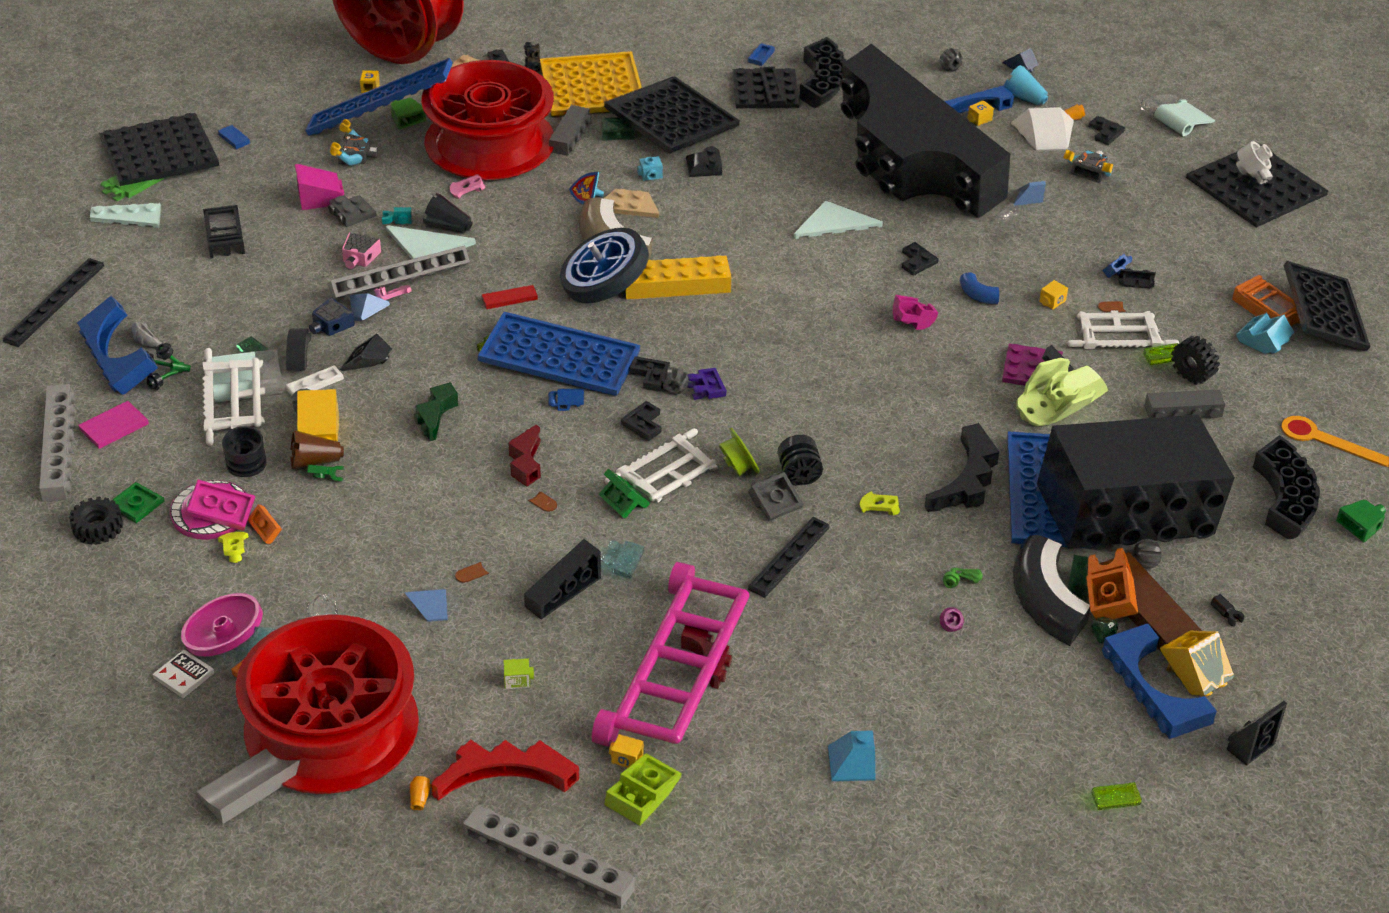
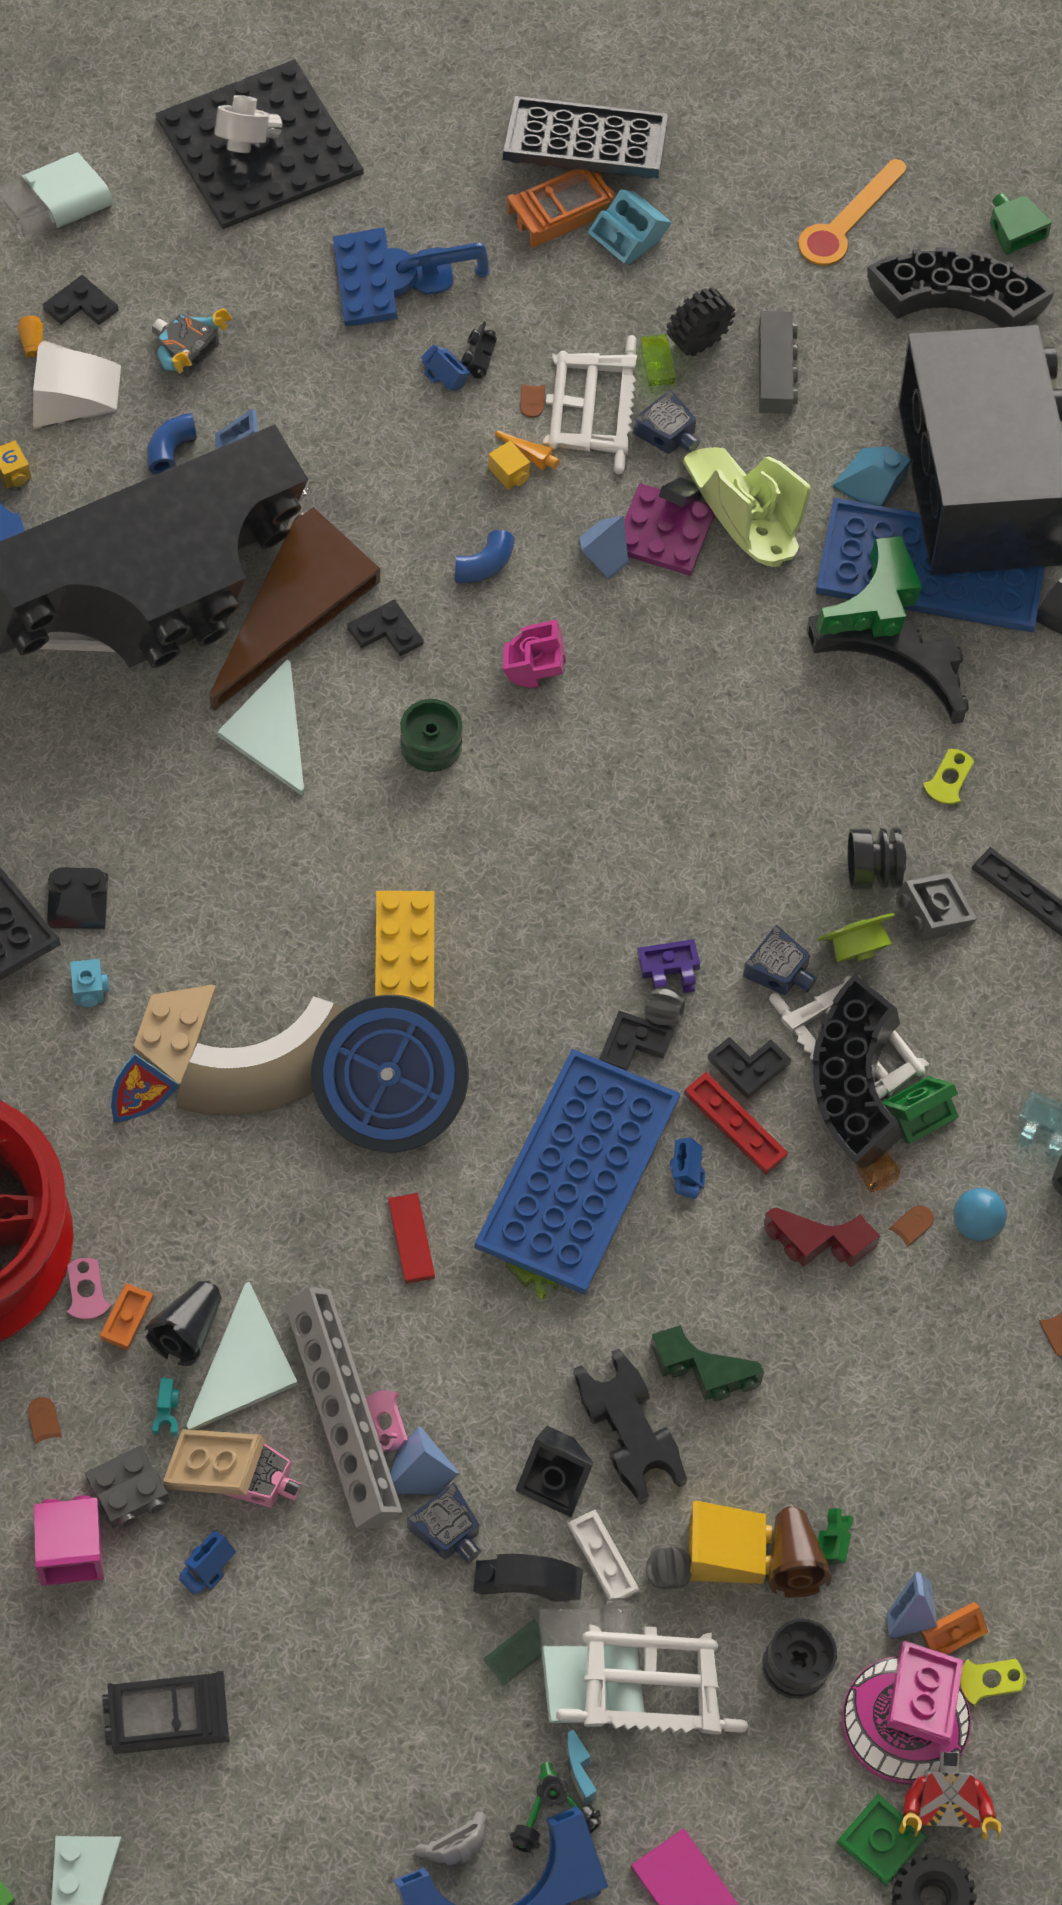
camera: 85 degrees left, 20 degrees up
(153, 521) = (949, 1800): none -> torso
(191, 374) = (577, 1760): none -> medium azure slope
(280, 500) = (913, 1608): none -> medium blue slope
(308, 237) = (206, 1563): none -> blue piece
(363, 229) = (213, 1462): none -> tan tile
(383, 389) = (619, 1404): none -> black piece
(391, 182) = (43, 1419): none -> dark orange piece
(458, 200) = (127, 1316): none -> orange plate
(548, 522) = (980, 1214): none -> dark azure piece
(577, 480) = (880, 1174): none -> clear orange slope
(601, 417) = (735, 1123): none -> red plate
(638, 456) = (846, 1072): none -> black brick
(715, 427) = (779, 963): none -> torso
(842, 273) = (431, 735): none -> dark green wheel
(933, 223) = (306, 587): none -> reddish brown slope
(994, 446) = (882, 601): none -> green arch
(1004, 334) = (606, 545): none -> medium blue slope
(1024, 167) = (165, 441): none -> blue cylinder
(1068, 308) = (537, 453): none -> light orange piece
(1113, 359) = (667, 424): none -> torso
(1180, 235) = (375, 274): none -> blue plate

